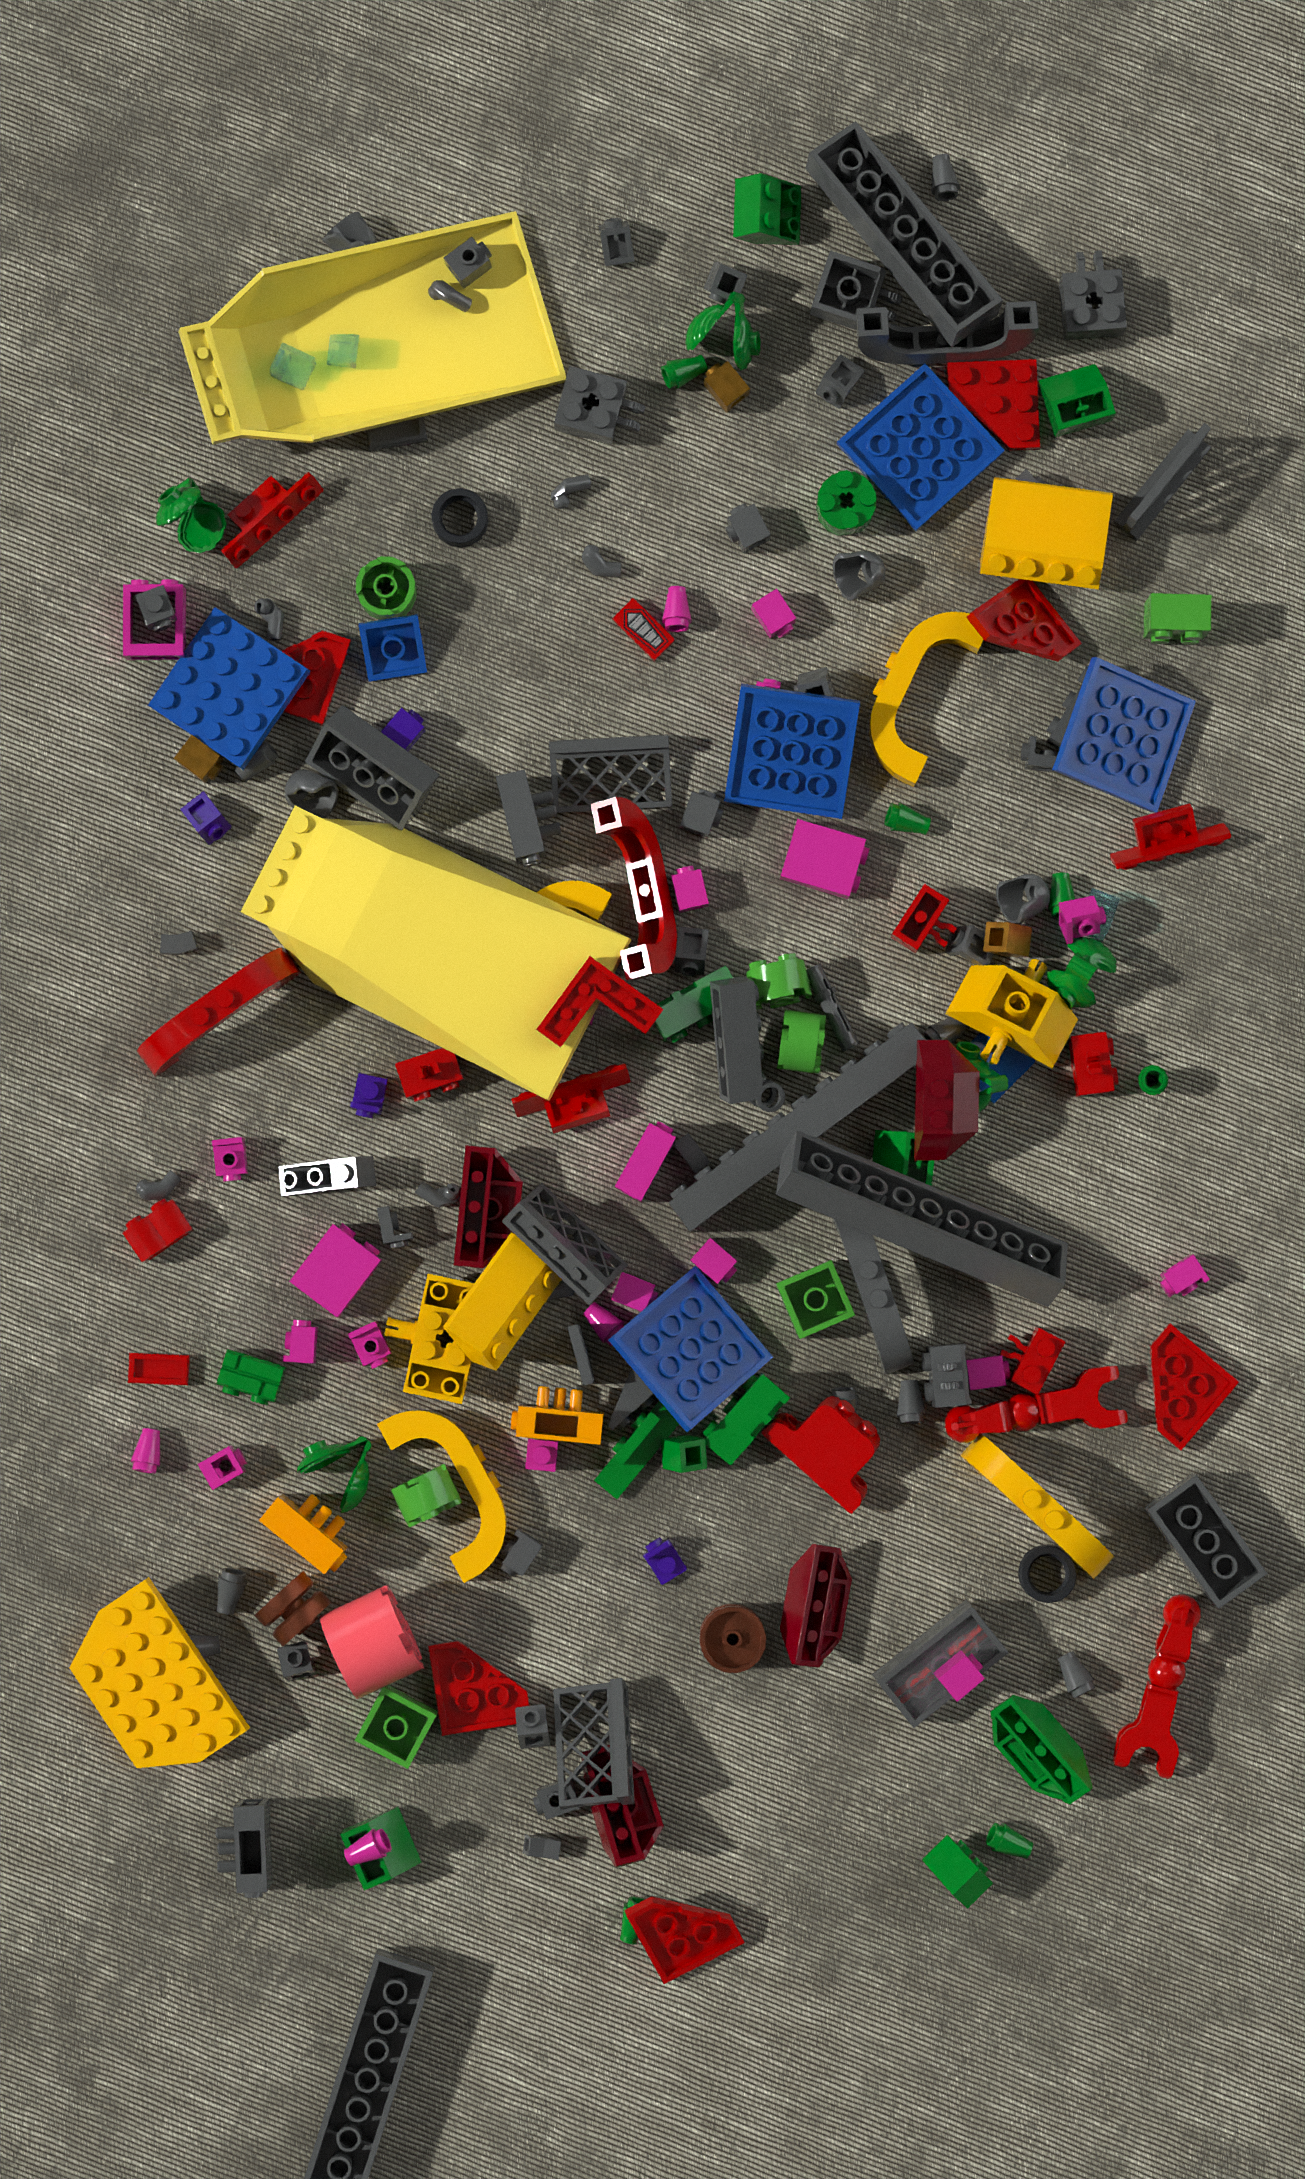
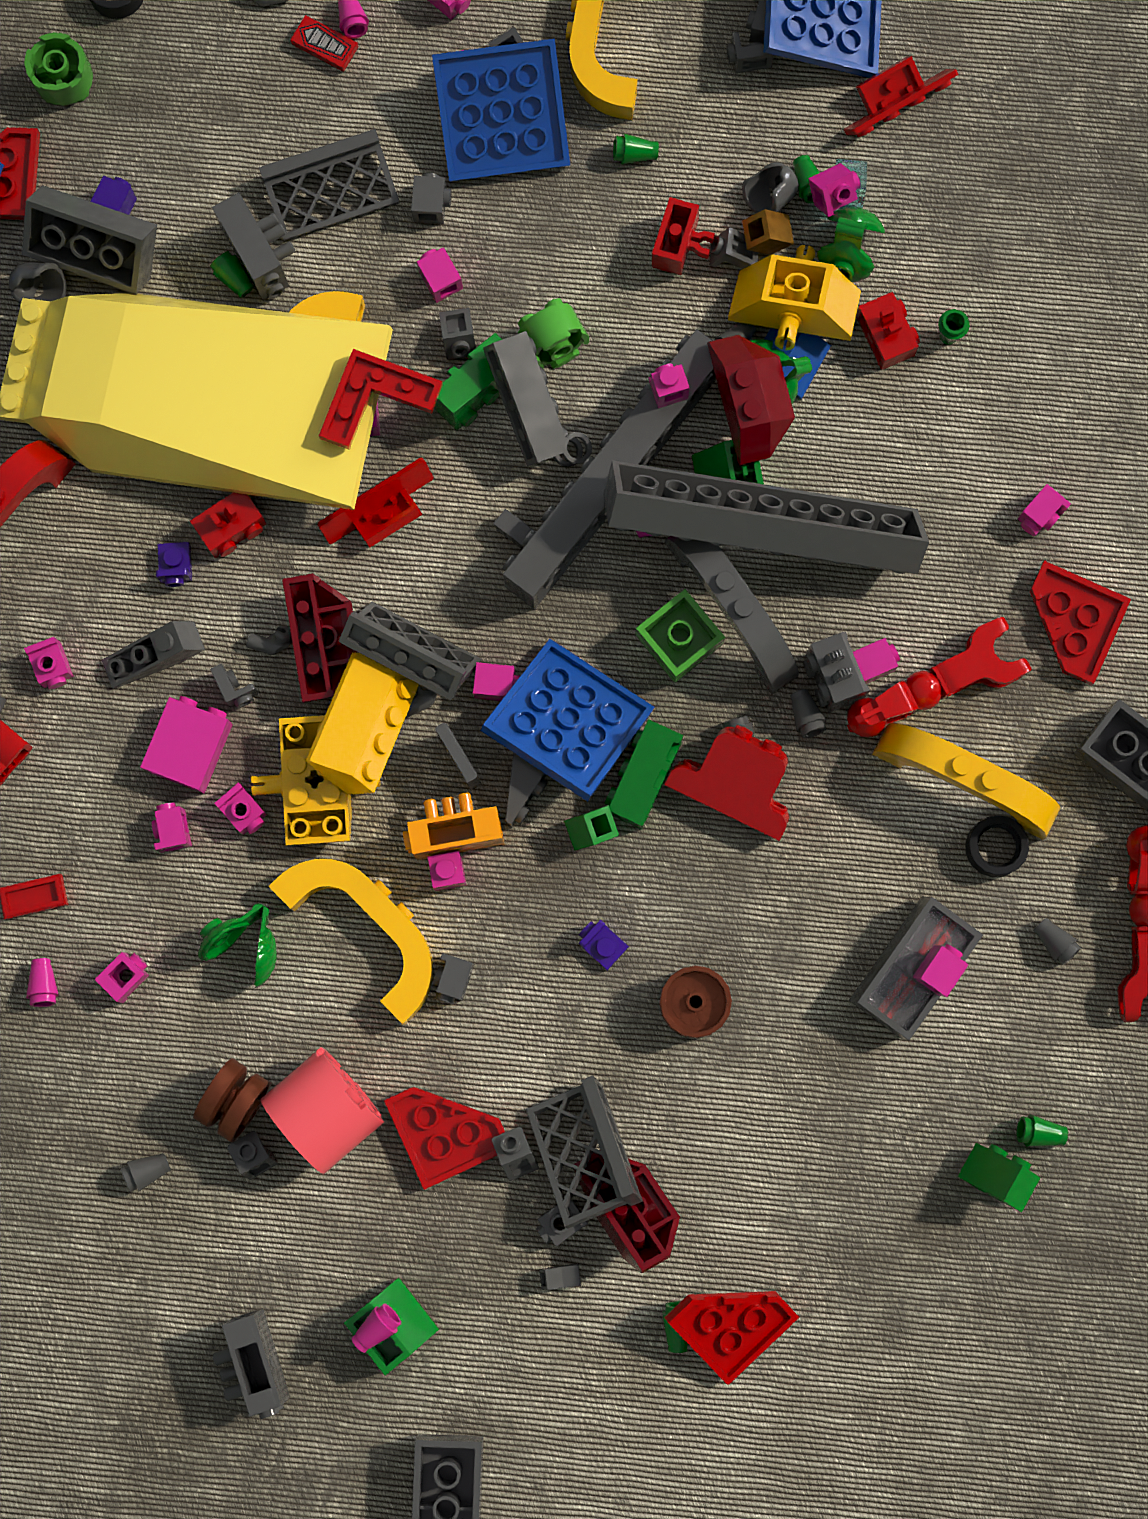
camera: 10 degrees left, 5 degrees down
(154, 1683) = (109, 1220): yellow plate -> none
(230, 1588) = (164, 1101): dark grey cone -> none
(251, 1376) = (128, 876): green brick -> none
(306, 1533) = (225, 1018): light orange piece -> none
(393, 647) = (81, 125): blue slope -> none
(396, 1726) = (373, 1193): bright green brick -> none
(426, 1495) = (338, 944): bright green brick -> none
(496, 833) = (232, 274): none -> green cone
(603, 1322) = (470, 721): dark pink cone -> none
(637, 1450) = (543, 837): green bracket -> none
(646, 1161) = (469, 546): dark pink brick -> none
(648, 885) = (417, 320): red arch -> none
(714, 1262) = (567, 628): dark pink brick -> none
(801, 1041) = (590, 385): bright green brick -> none
(815, 1605) = (770, 943): dark red wedge -> none
(824, 859) = (564, 208): dark pink brick -> none
(829, 1003) = (603, 338): dark grey pin -> none
(870, 1071) = (669, 385): none -> dark pink brick
(1036, 1359) = (920, 634): red brick -> none
(1040, 1749) = (1044, 1027): green wedge -> none

